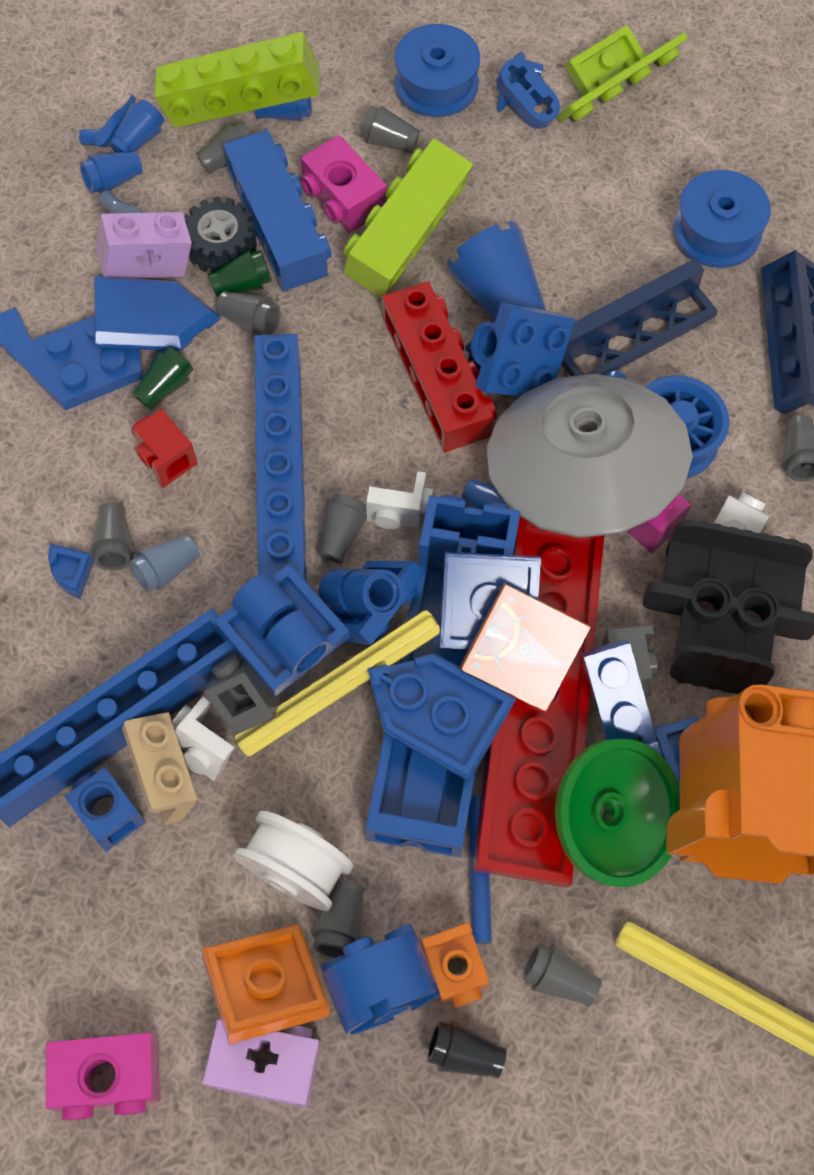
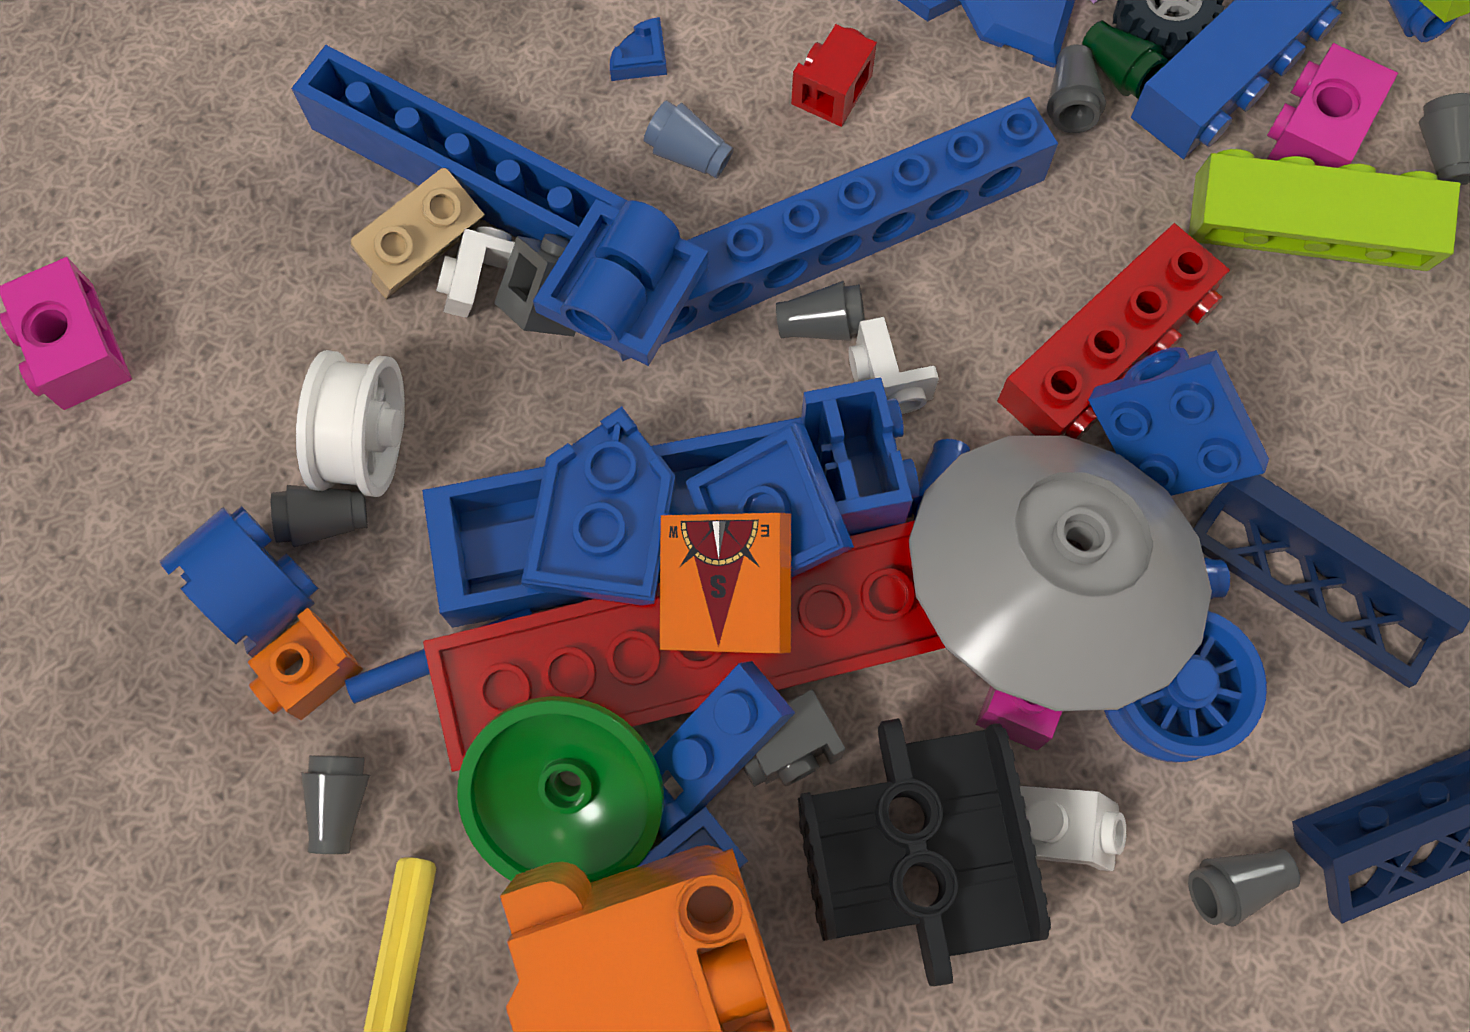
camera: 70 degrees right, 5 degrees up
(112, 539) = (693, 73): dark grey cone -> none
(112, 826) = (347, 187): blue brick -> none
(163, 377) = (932, 35): dark green cone -> none
(264, 983) = (205, 453): orange tile -> none
(288, 1082) = (122, 493): lavender brick -> none
(339, 682) = (608, 391): light yellow axle -> none
(369, 596) = (700, 378): blue plate -> none
(465, 1051) = (204, 717): black cone -> none
(497, 270) = (1297, 354): blue cone -> none

